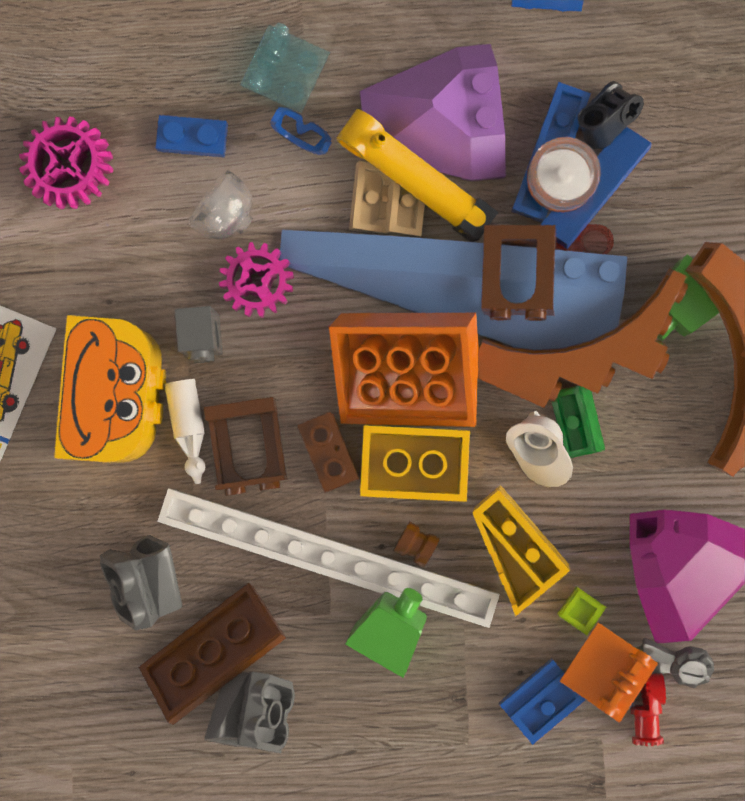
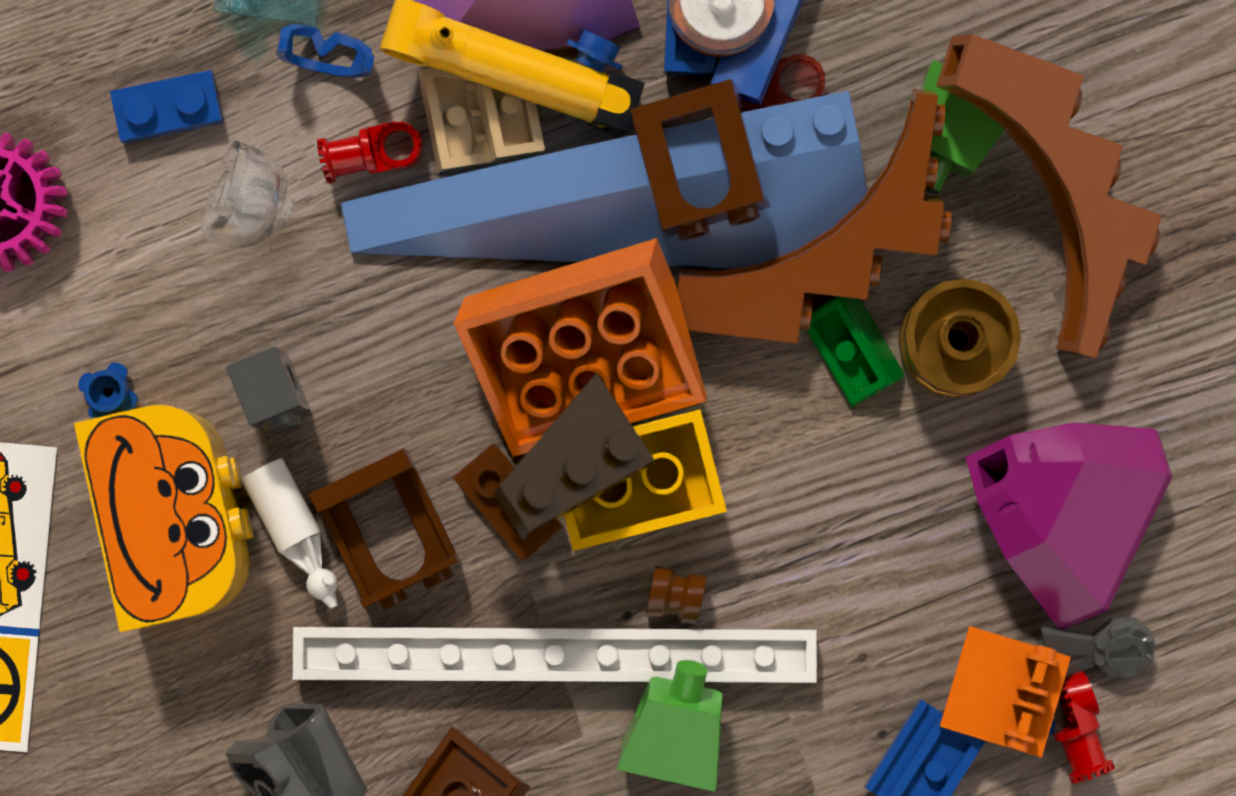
camera: 25 degrees left, 0 degrees up
(91, 296) = (93, 388): none -> blue plate
(242, 286) = (308, 303): dark pink gear -> none
(308, 202) = (366, 151): none -> red connector
(378, 439) = (573, 461): none -> dark brown wing
(473, 183) = (596, 51): none -> blue plate
(519, 550) = (823, 557): yellow wedge -> none
(540, 450) = (810, 406): white piece -> none
(581, 610) = (942, 617): lime tile -> none
(669, 437) = (989, 331): none -> pearl gold wheel

